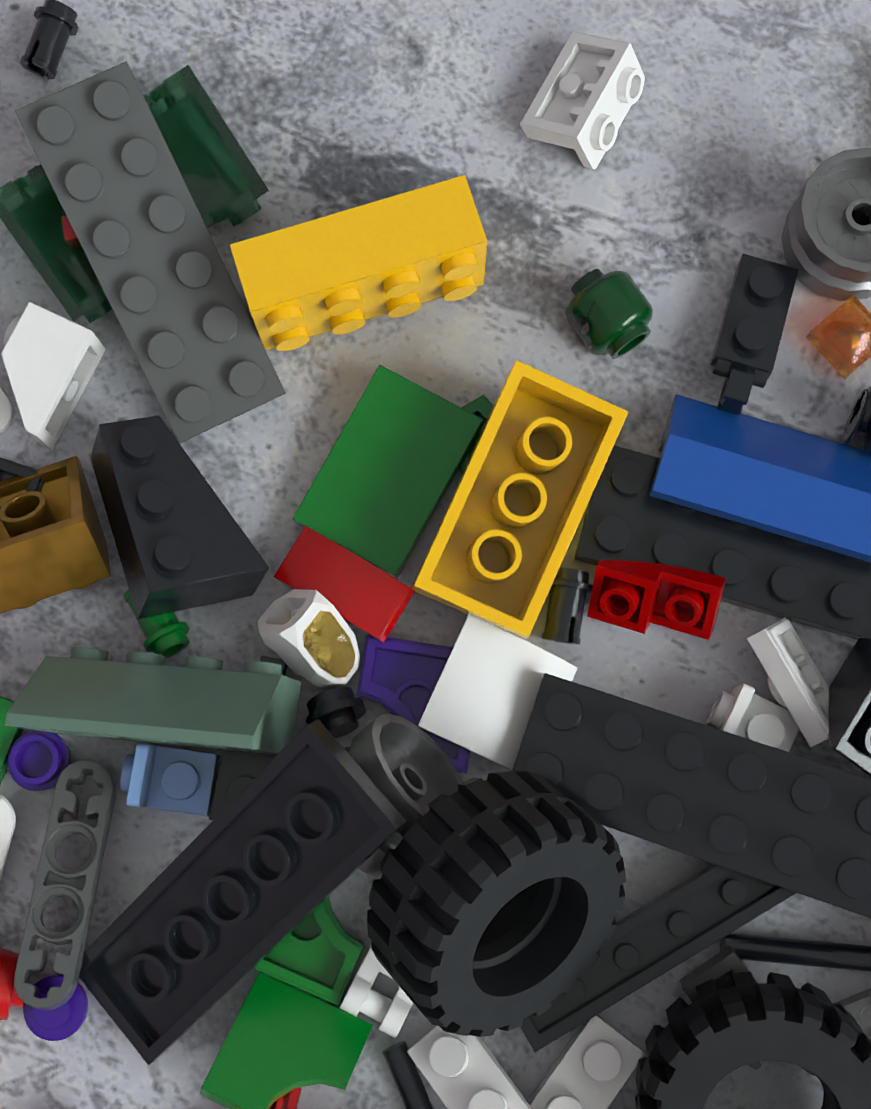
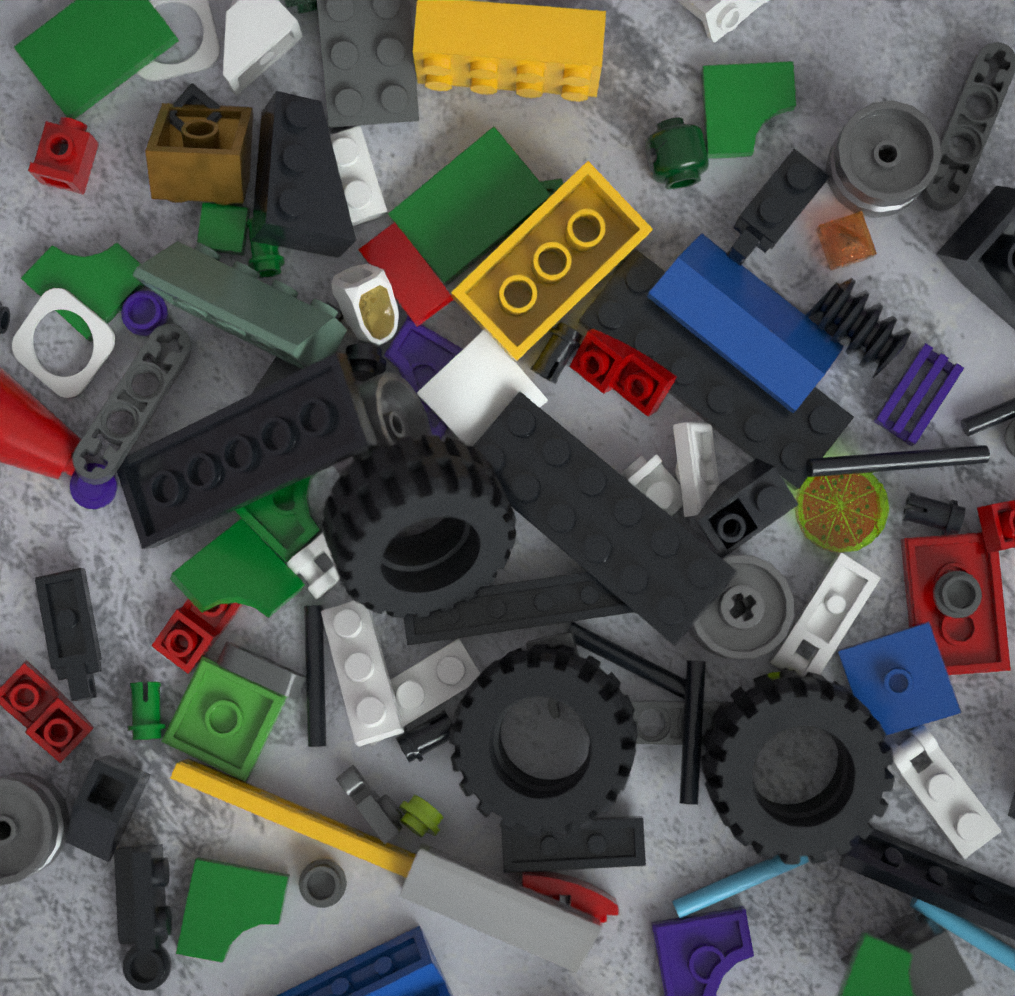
camera: 20 degrees right, 5 degrees up
(97, 615) = (223, 228): none -> green tile
(170, 779) = (230, 362): light blue bracket -> none
(239, 488) = (358, 176): none -> white plate
(656, 225) = (741, 101): none -> green tile

